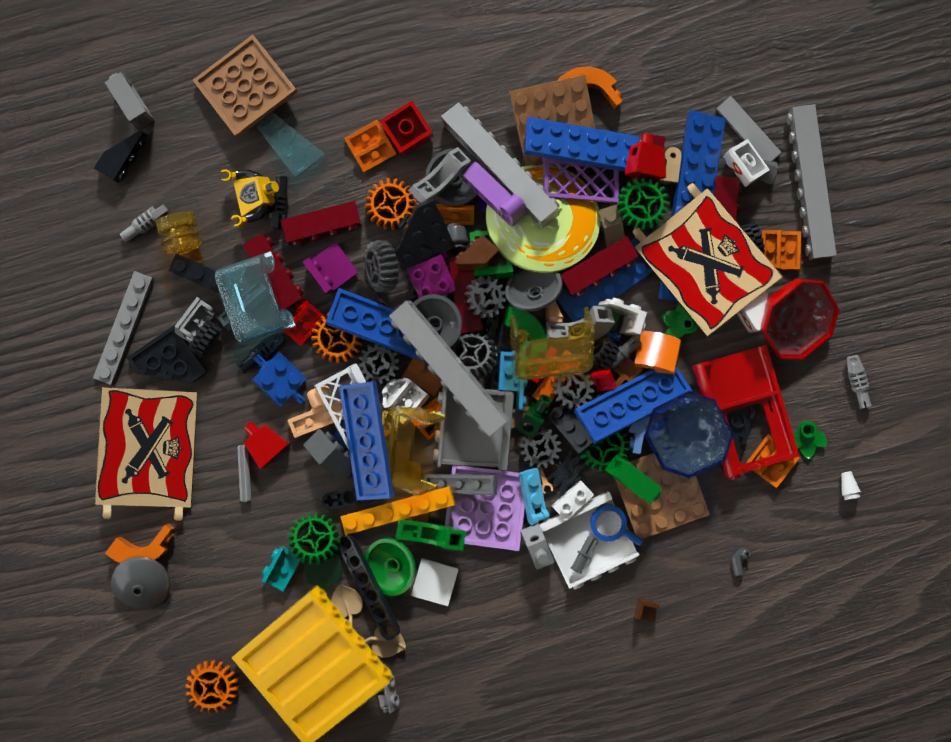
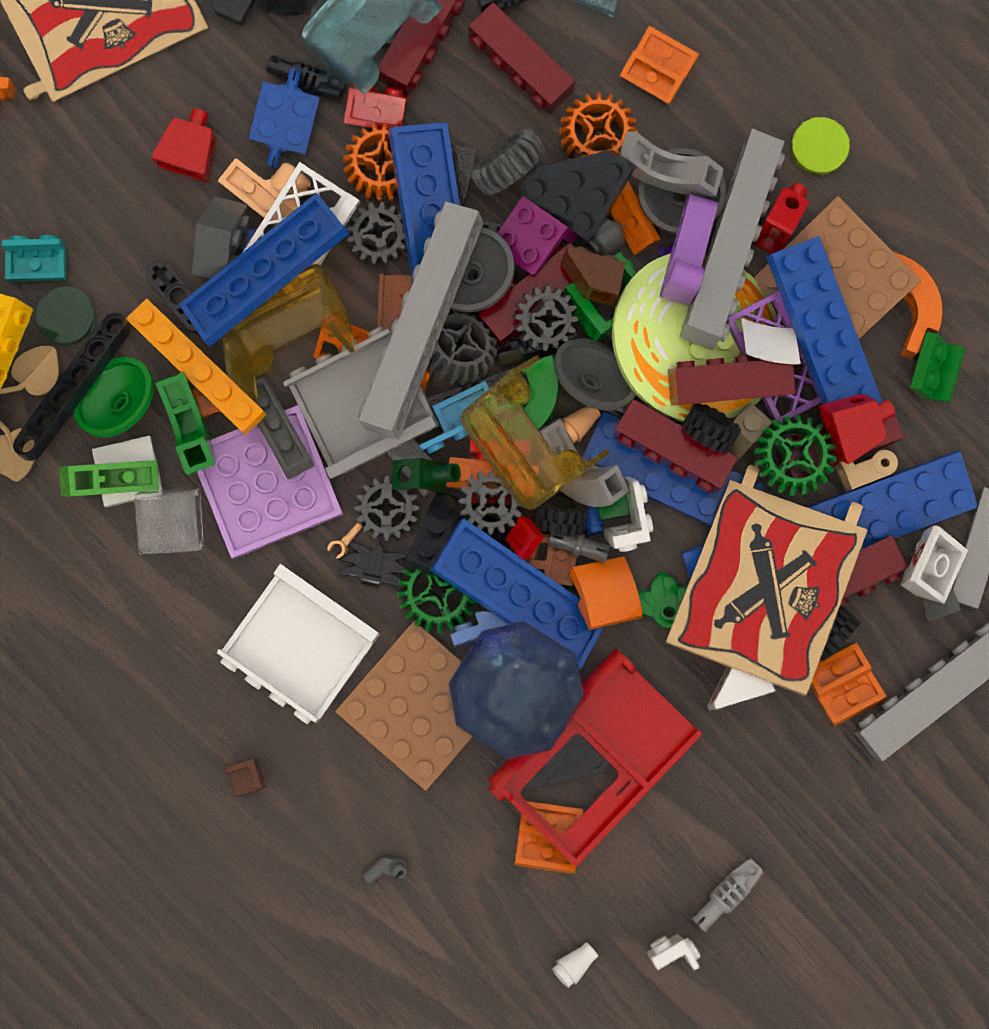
camera: 60 degrees right, 5 degrees down
(244, 473) = (133, 145): light grey axle -> none
(310, 522) = (83, 259): green gear -> none
(331, 268) = (467, 103): magenta bracket -> none
(403, 394) = (356, 289): white slope -> none
(406, 128) = (709, 95): red brick -> none
(435, 596) = (108, 478): none -> bright green slope
(470, 82) = (820, 146): none -> lime tile
(479, 574) = (169, 521): none -> clear brick
(502, 128) = (783, 218): none -> red torso
(533, 496) = (316, 535): medium azure plate -> none
(538, 549) = (245, 580): light grey torso -> none
(572, 500) = (339, 590): white bracket -> none
(574, 180) = (770, 343): none -> white sticker
(582, 214) = (729, 381): none -> dark red brick
(584, 554) = (275, 649): dark grey axle -> none
(602, 241) = (711, 428): none -> black tyre
(610, 524) = (335, 660): piece -> none
(633, 479) = (412, 652): green window -> none
(636, 94) = (937, 369): none -> green bracket
(799, 318) = (764, 756): clear light blue rock -> none
(809, 442) = (604, 874): green plate -> none
(872, 430) = (668, 950): none -> white bracket

